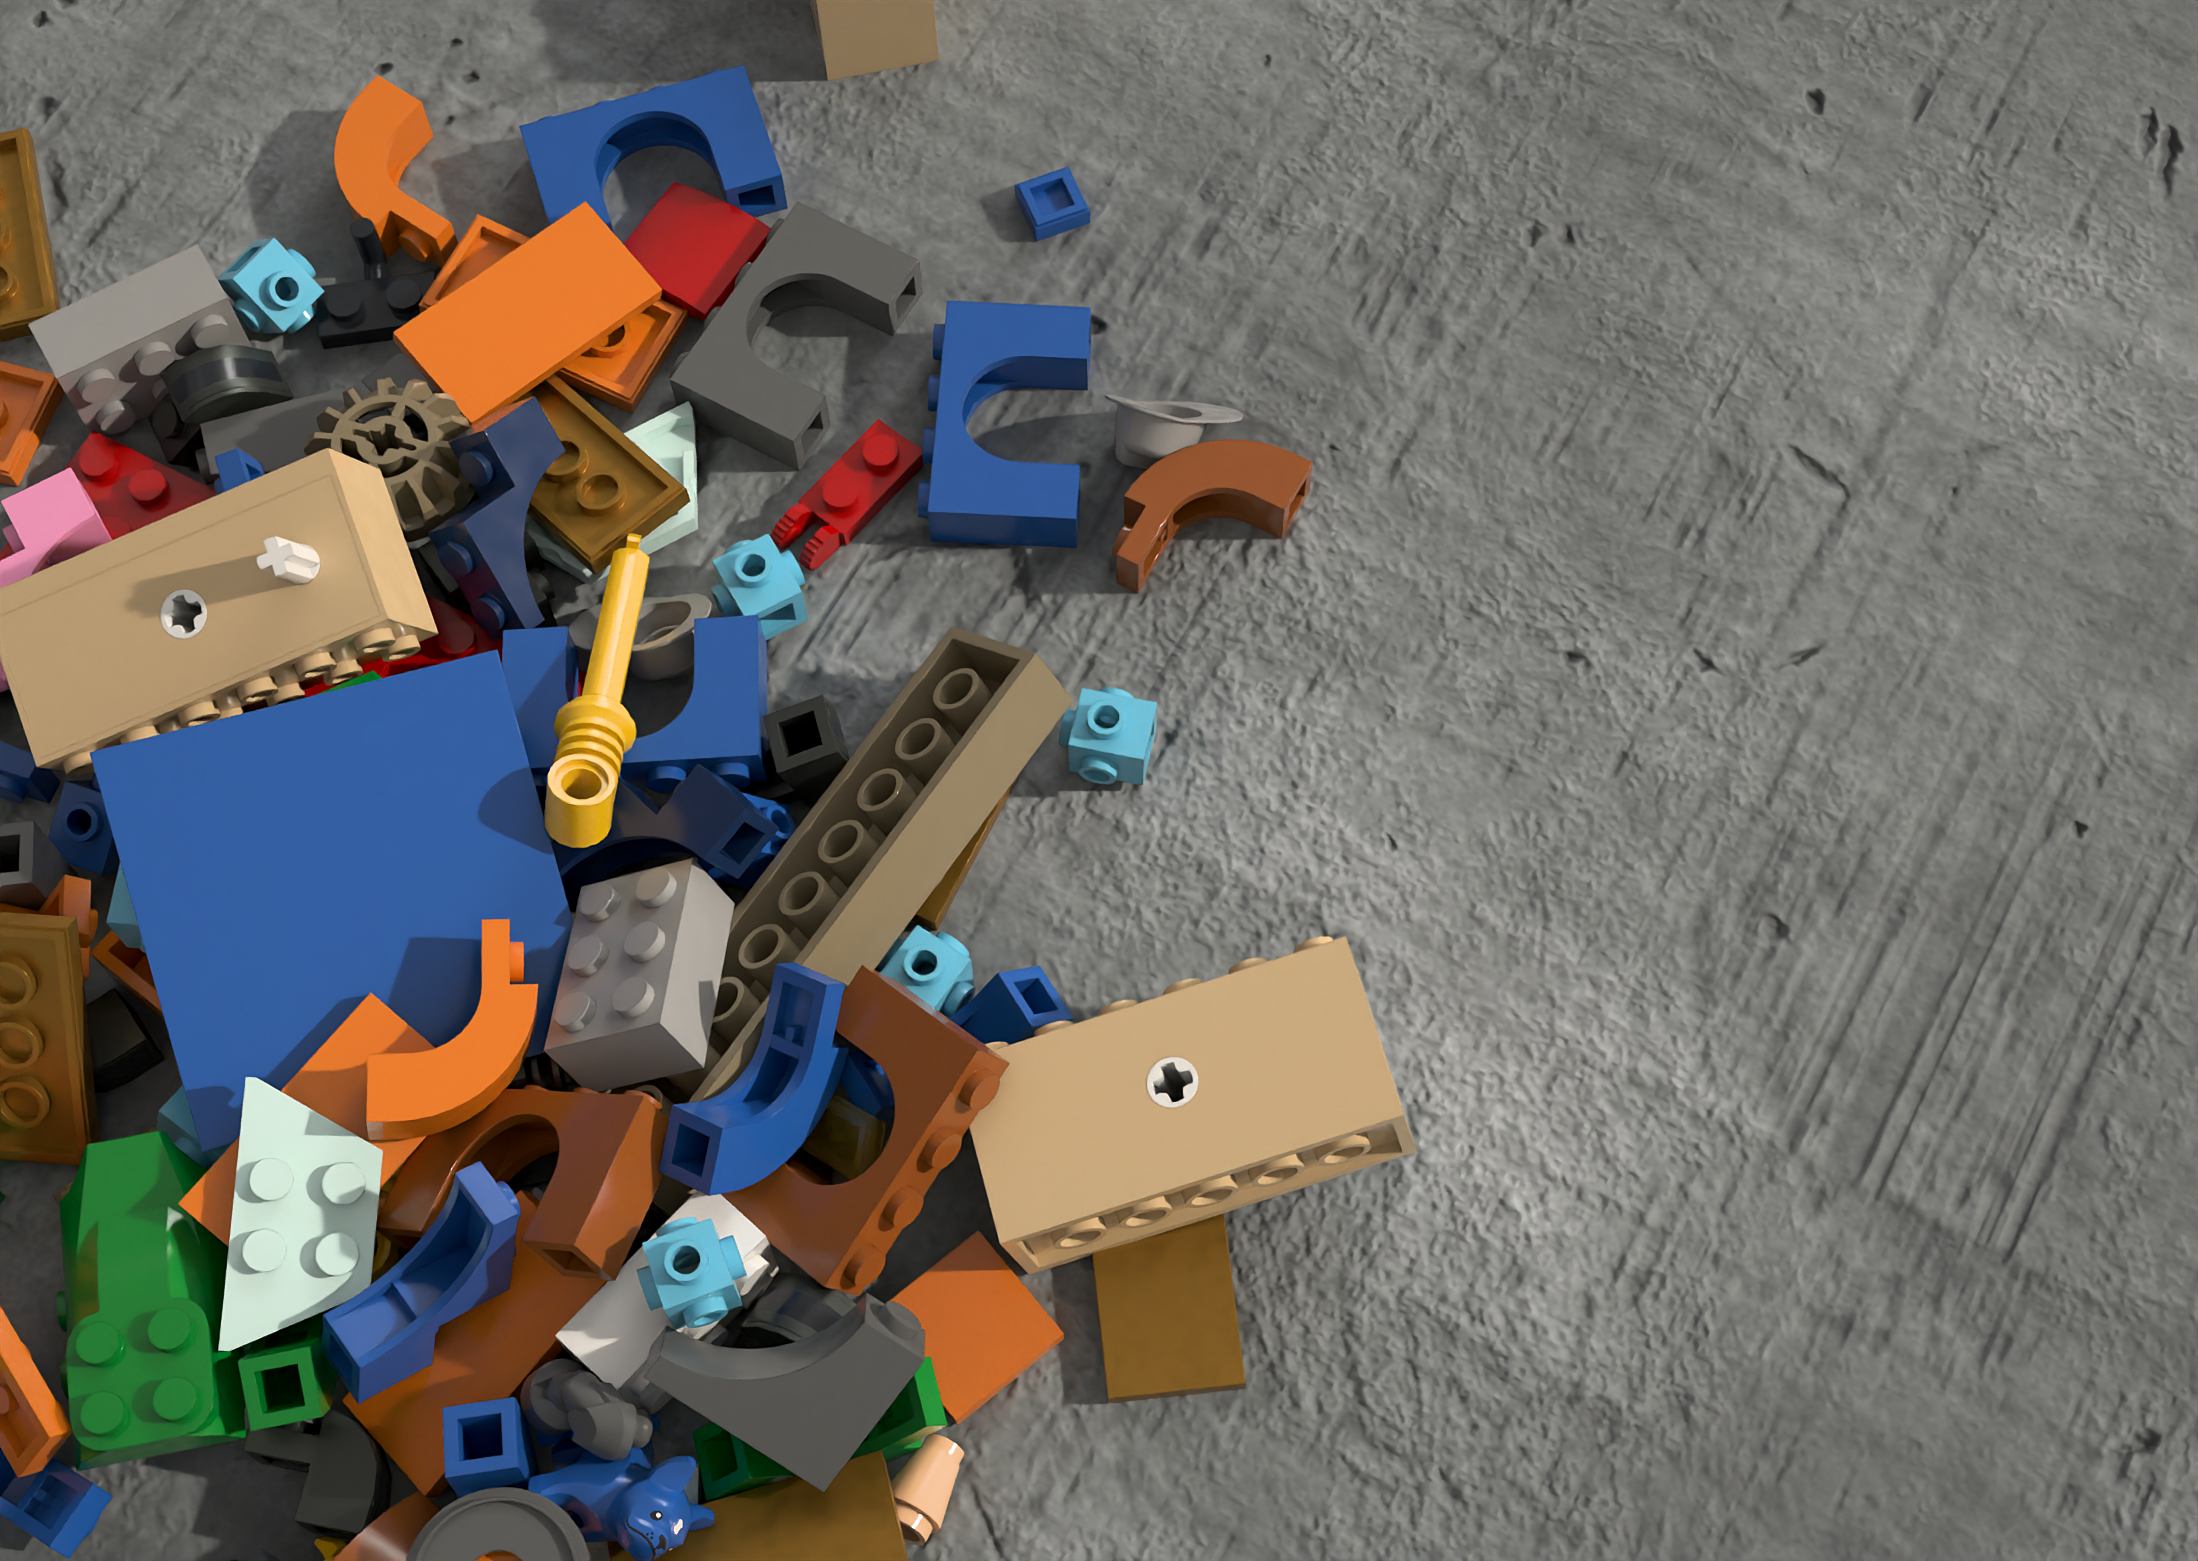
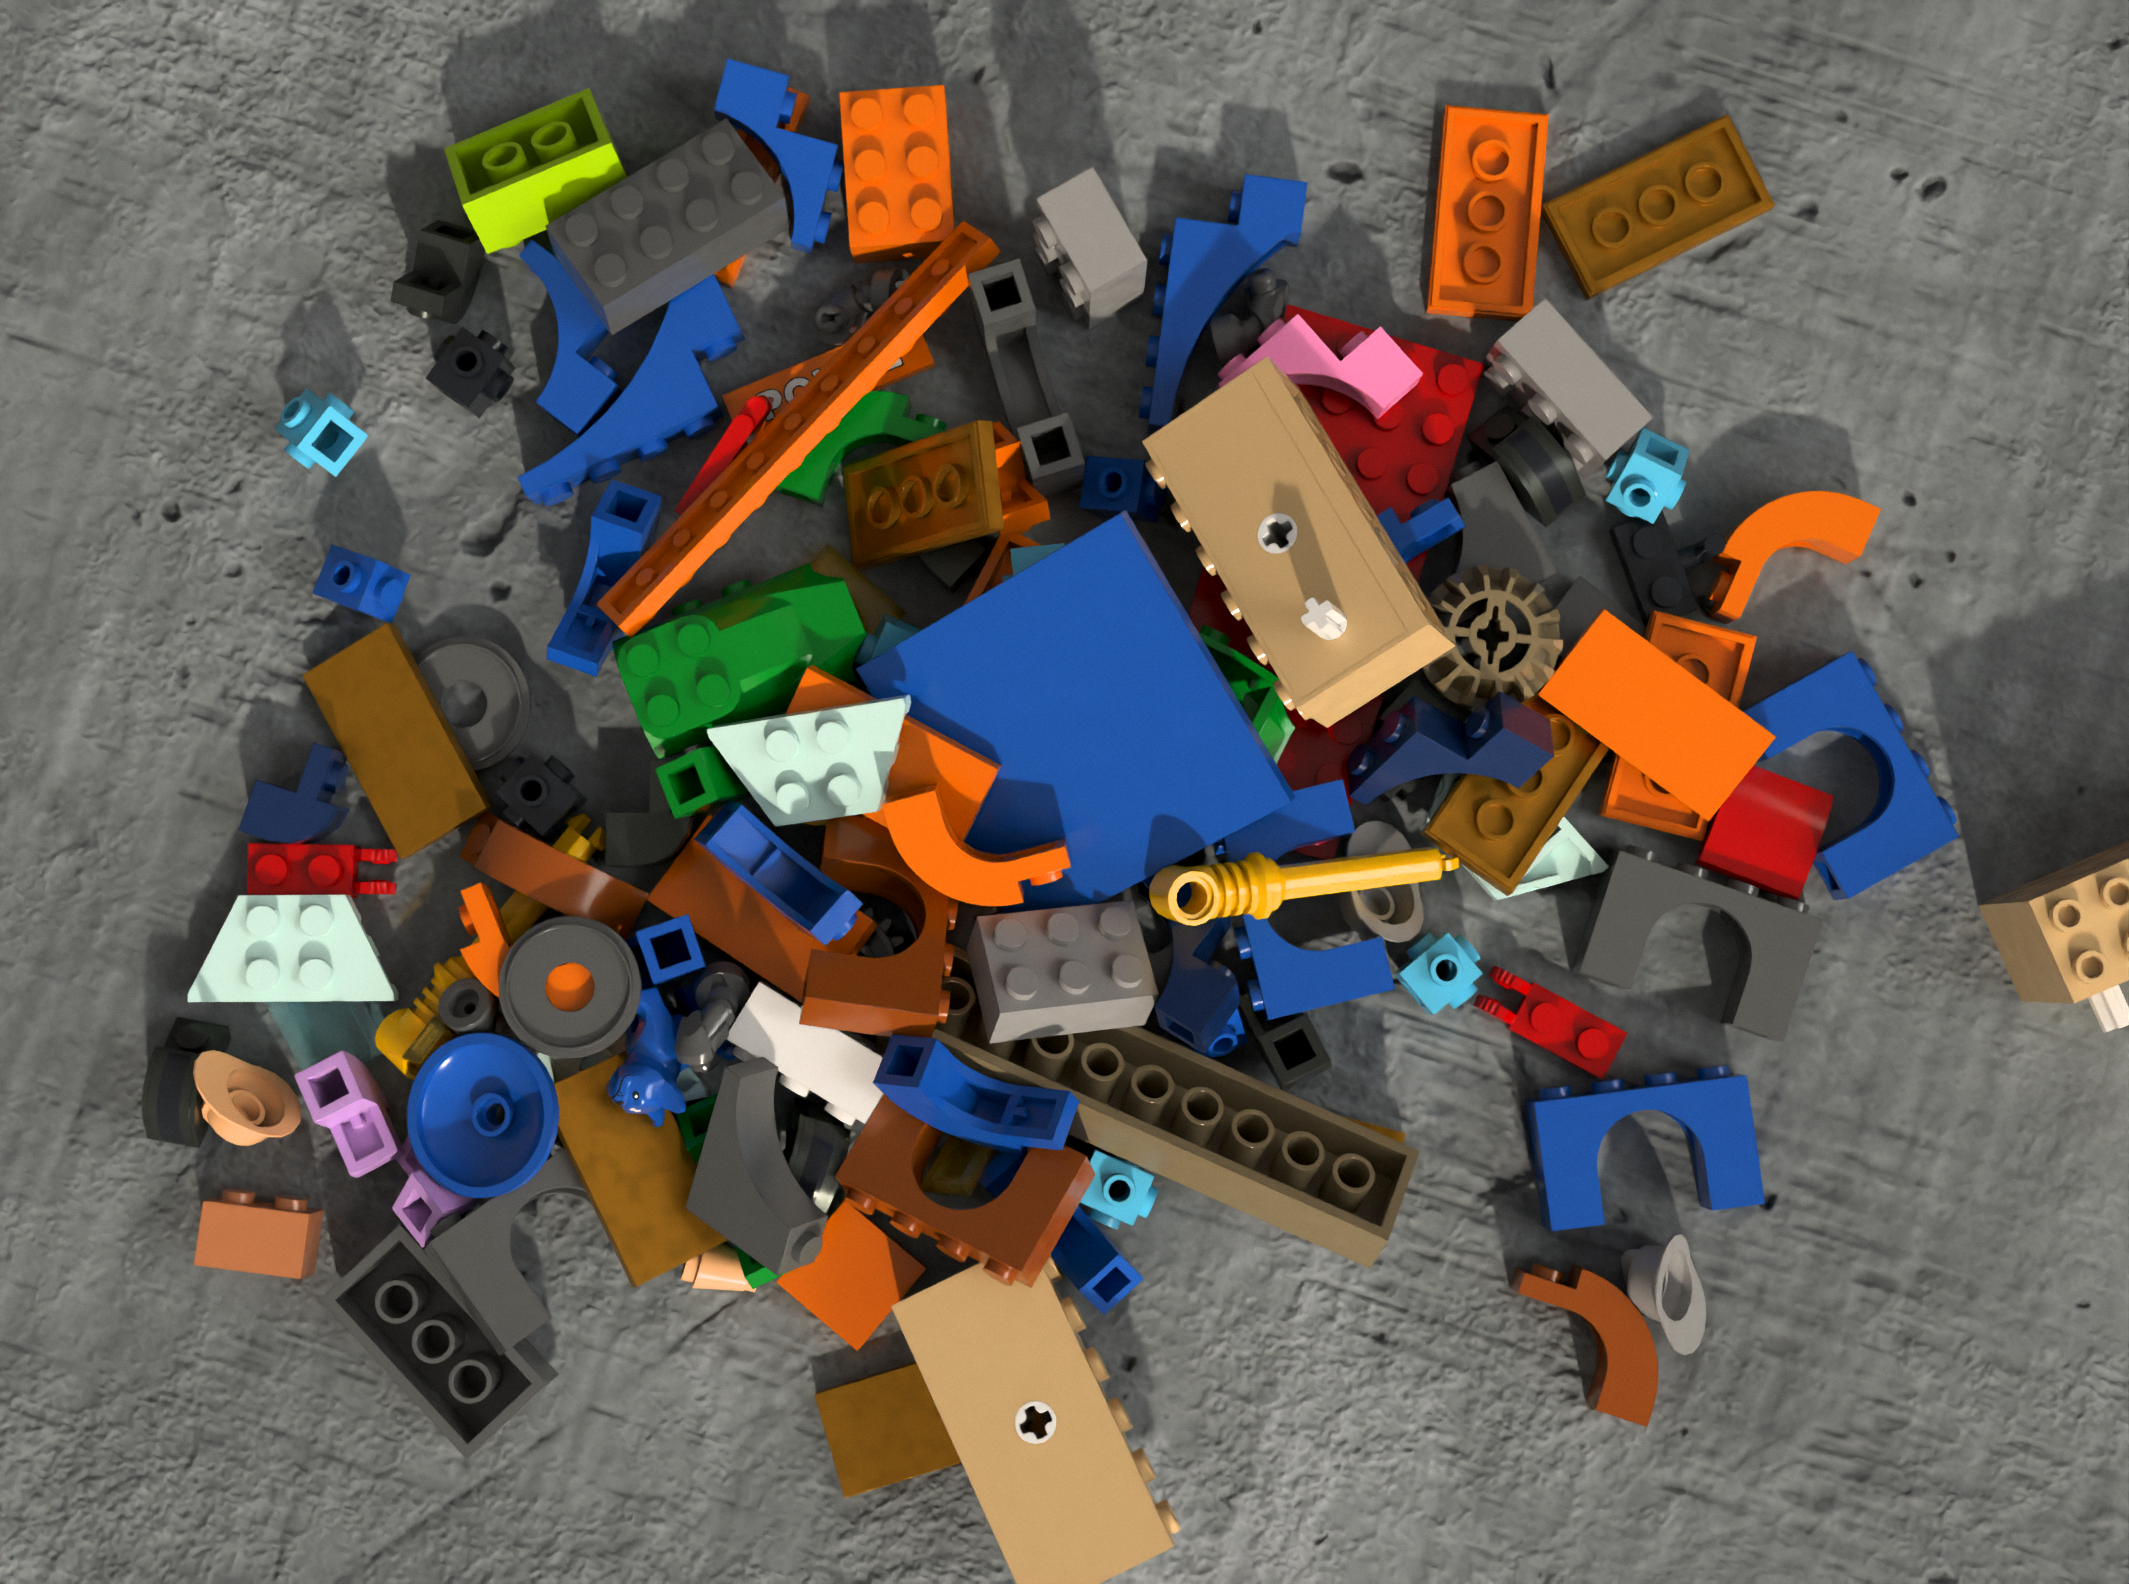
camera: 80 degrees right, 20 degrees up
(698, 1296) = (833, 1073): medium azure brick -> none
(1052, 203) = (1883, 1139): blue tile -> none
(1109, 736) = (1364, 1314): medium azure brick -> none

